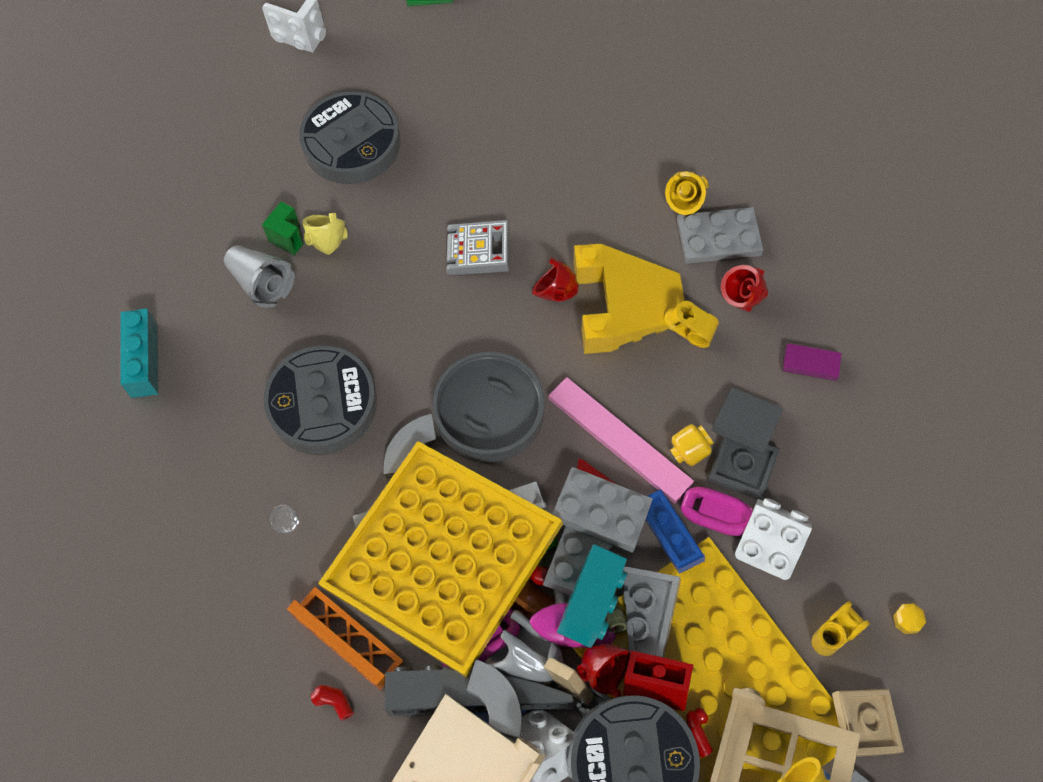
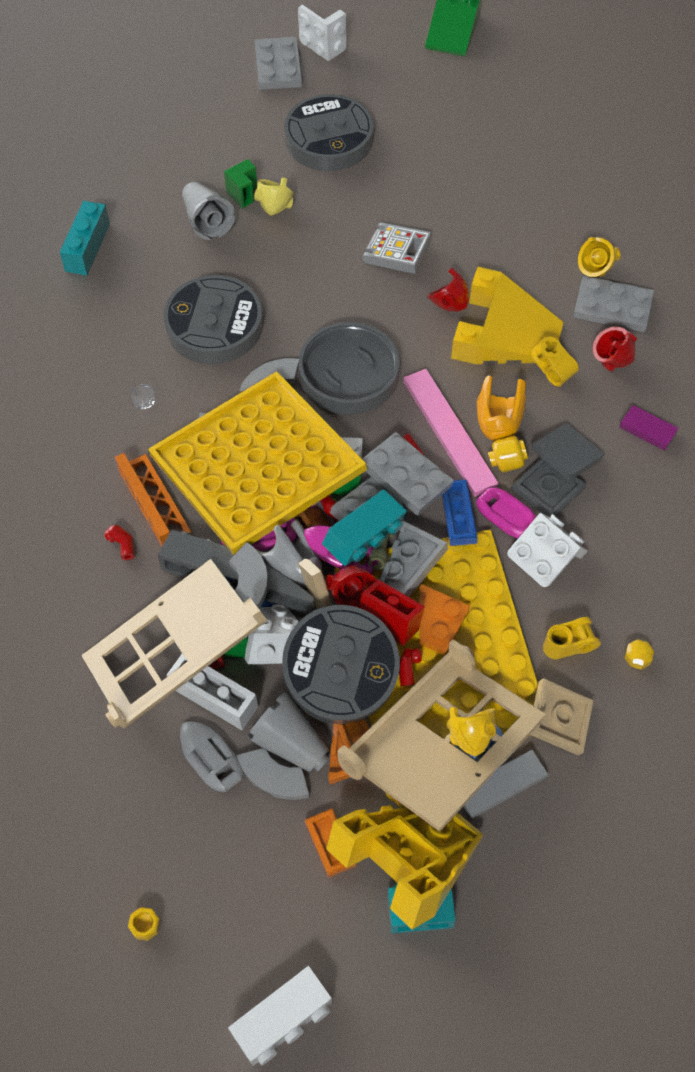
camera: 20 degrees right, 5 degrees down
(260, 72) = (278, 63): none -> light grey plate
(665, 401) = (498, 415): none -> light orange hair
(711, 663) = (440, 619): none -> orange wing

